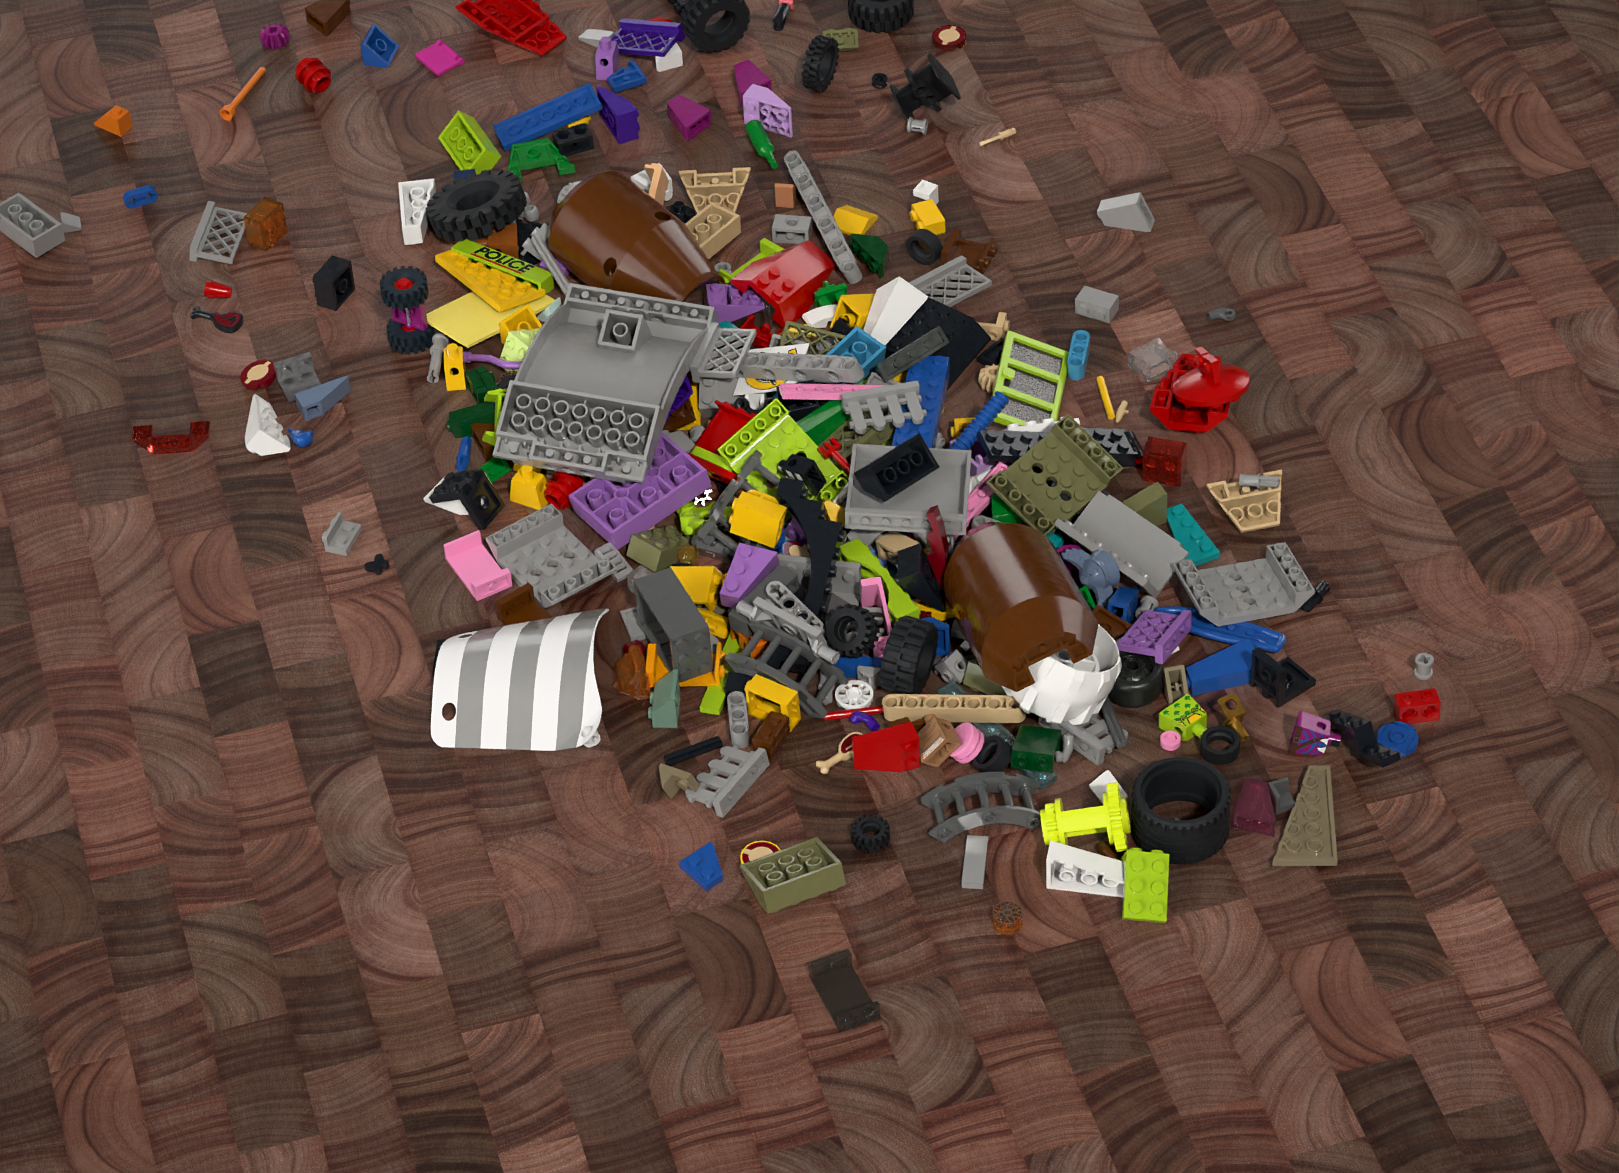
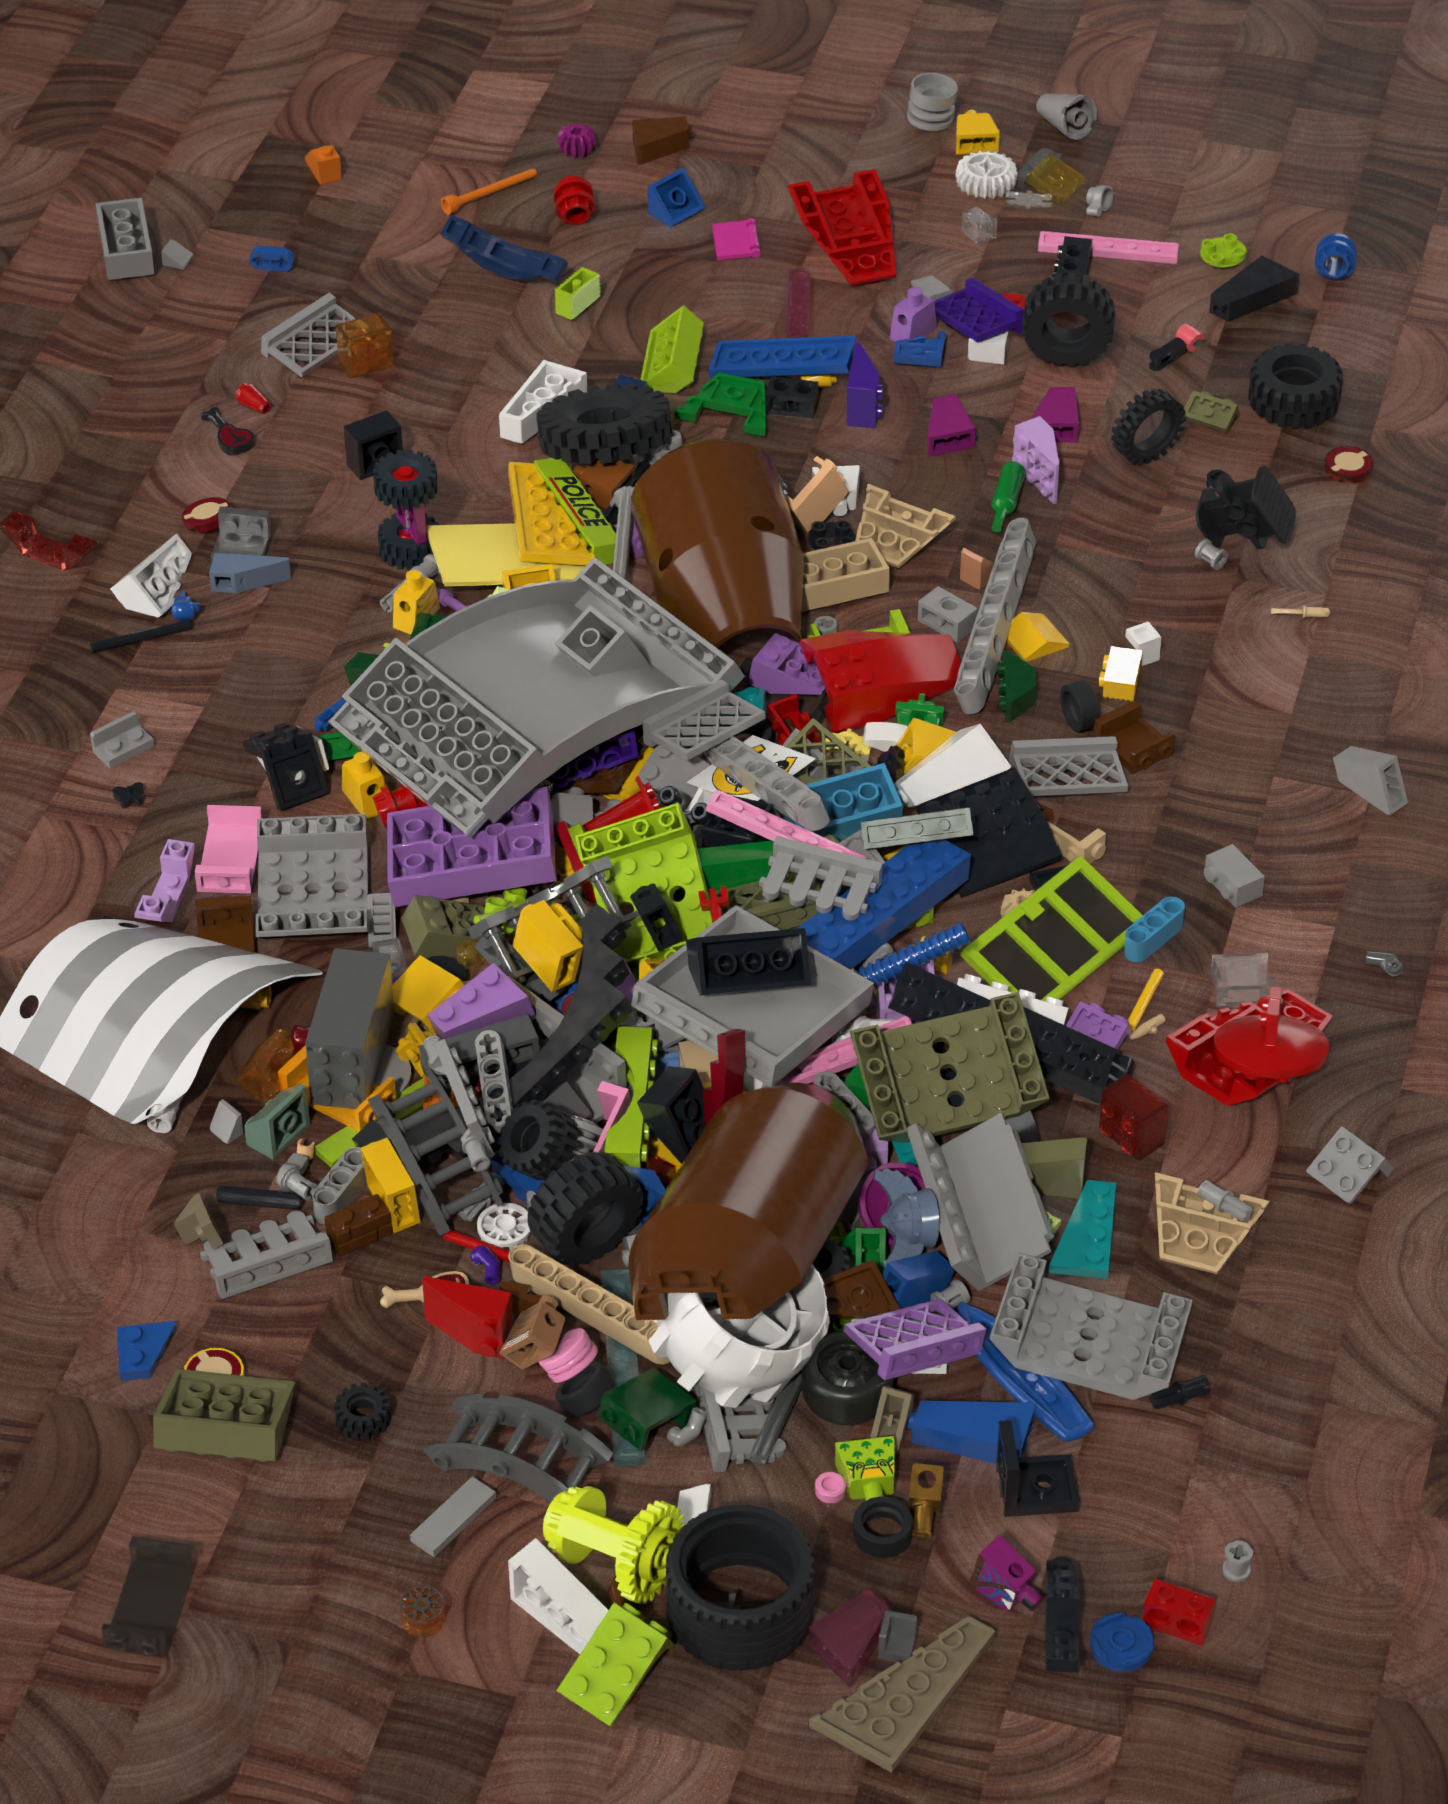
camera: 30 degrees right, 0 degrees up
(287, 468) = (140, 636): none -> black bar
(300, 130) = (501, 256): none -> dark blue piece
(373, 133) = (577, 293): none -> lime brick
(459, 602) = (172, 884): none -> lavender slope
(524, 82) = (798, 303): none -> clear pink beam
(632, 719) = (227, 1122): none -> light grey slope
(704, 728) = (291, 1172): none -> light grey arm
(1104, 419) = (1098, 1025): none -> medium lavender bracket
(1300, 433) = (1347, 1165): none -> light grey bracket

